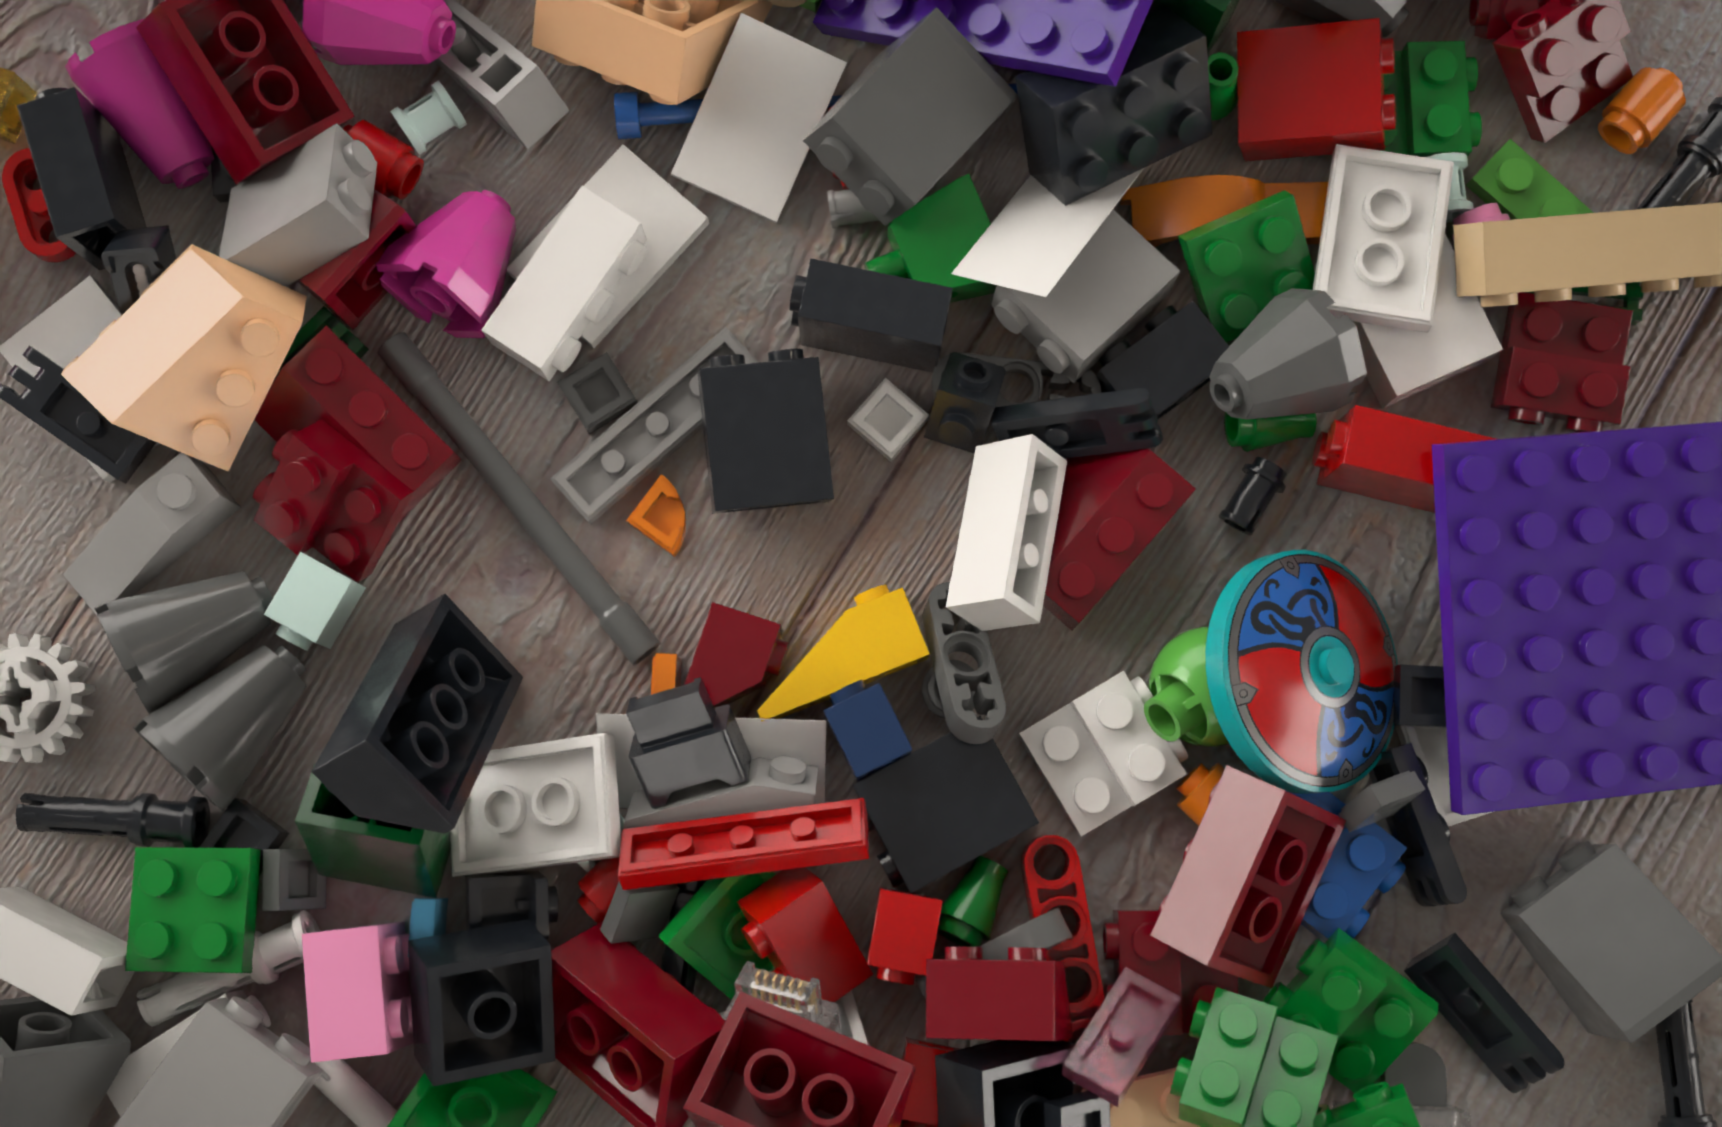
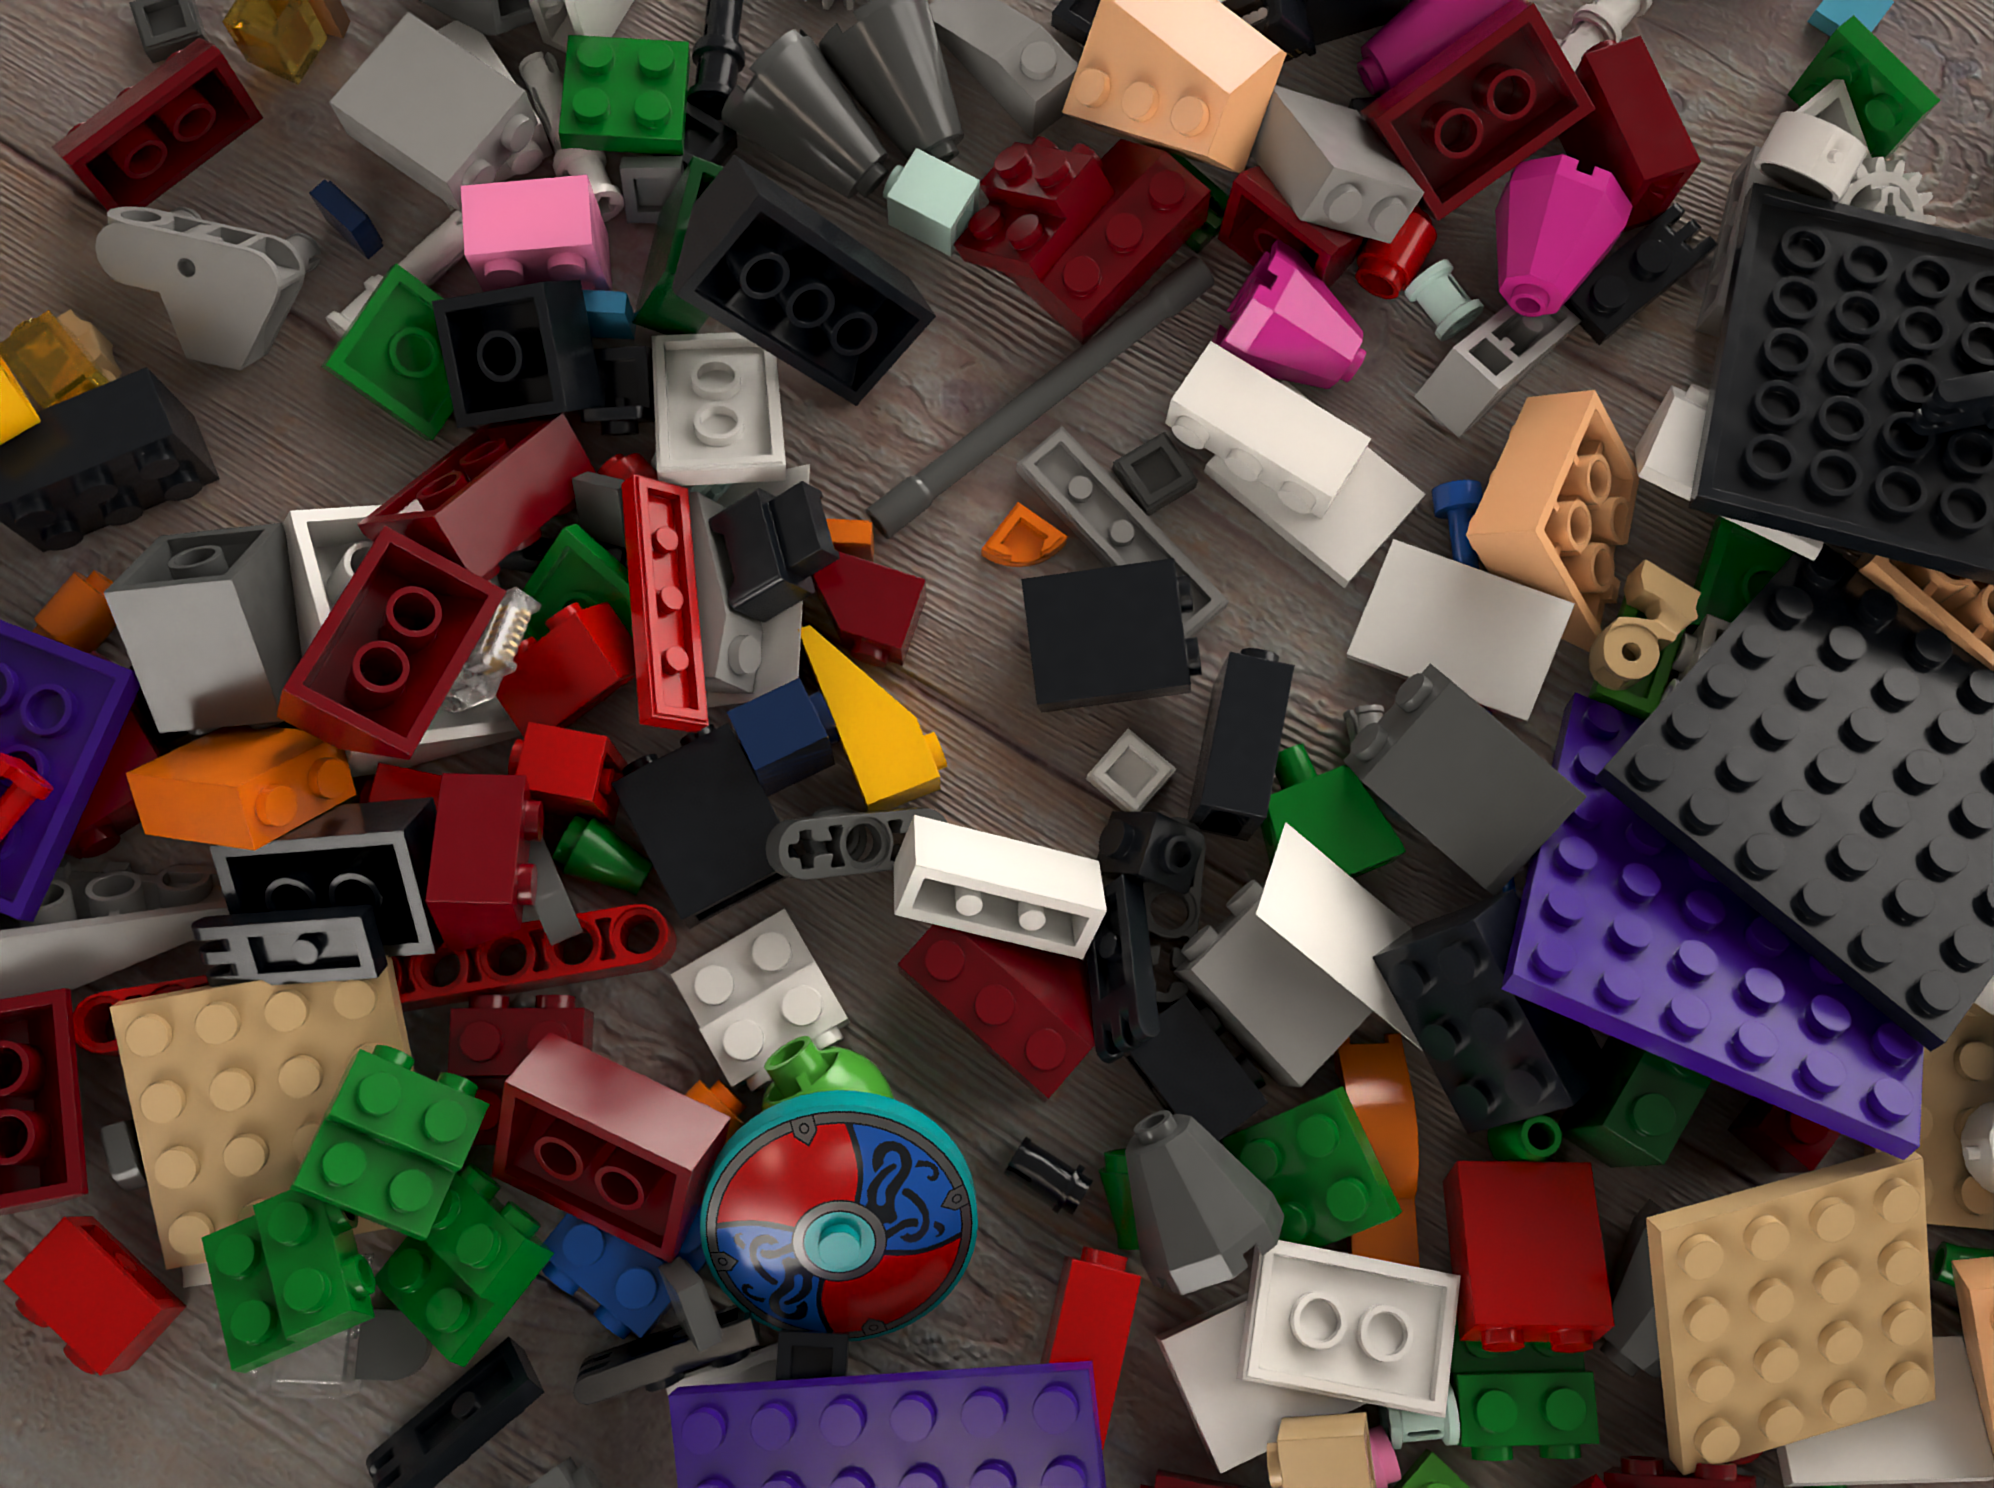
camera: 85 degrees right, 5 degrees down
(1121, 1036) = (440, 995): clear pink plate -> none

